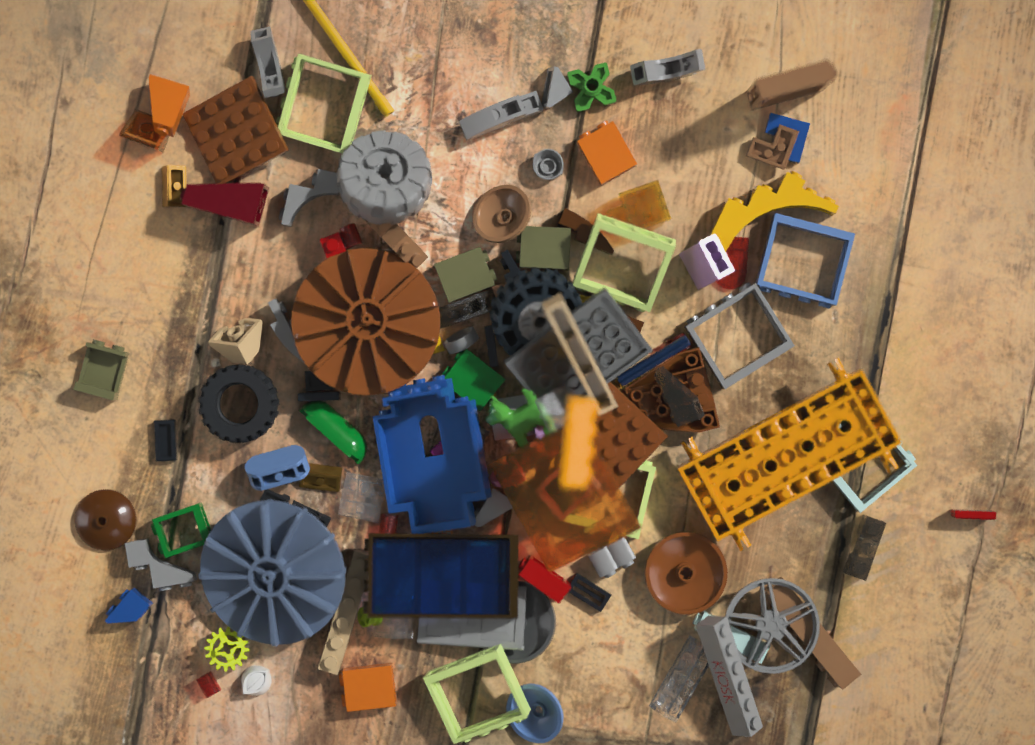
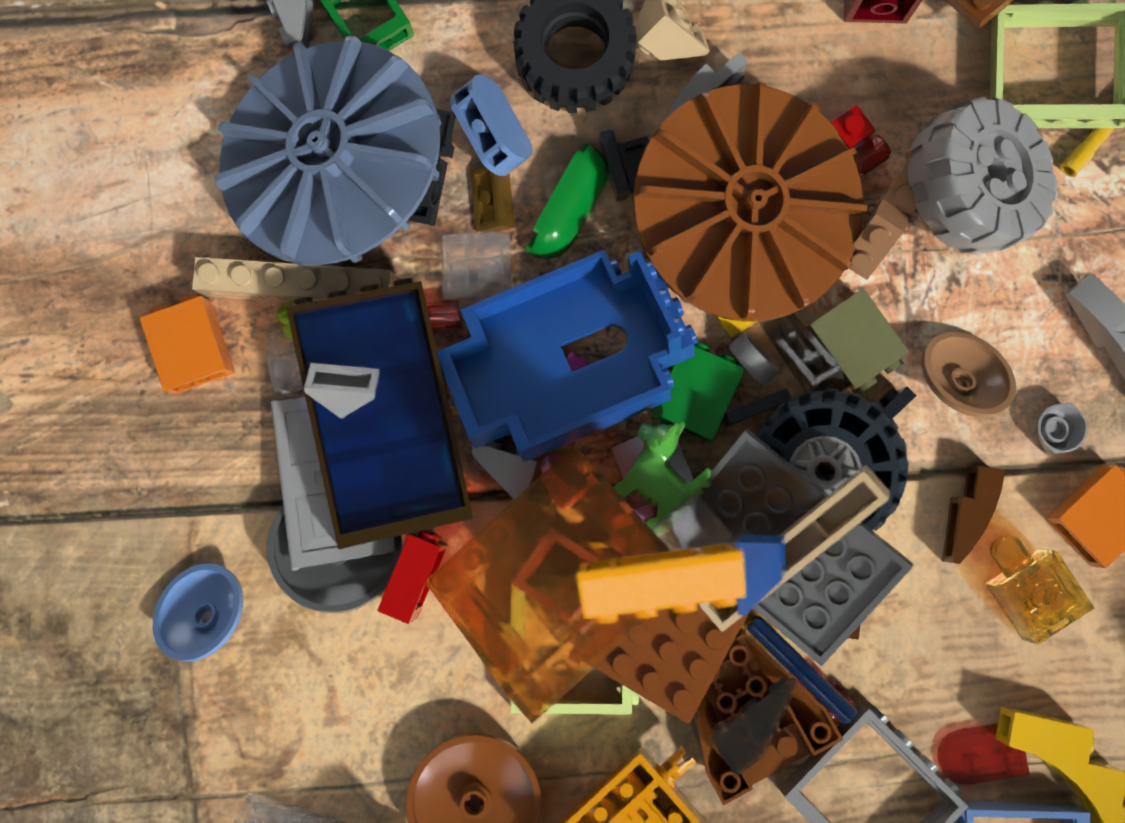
camera: 85 degrees right, 5 degrees down
(208, 684) = (141, 105): clear red piece -> none
(218, 651) = (187, 124): neon yellow gear -> none
(256, 680) = (163, 175): white hat -> none
(297, 196) = (909, 66): light grey arch -> none
(423, 594) = (341, 387): none -> light grey slope
(482, 728) = (159, 536): yellowish green window -> none
(544, 248) = (935, 452): olive brick -> none
(585, 380) = (762, 567): none -> blue slope
(603, 601) = (399, 679): black tile -> none
(612, 557) = (470, 677): light grey brick -> none
(633, 233) = (1004, 591): yellowish green window -> none
(706, 262) = (985, 719): lavender brick -> none

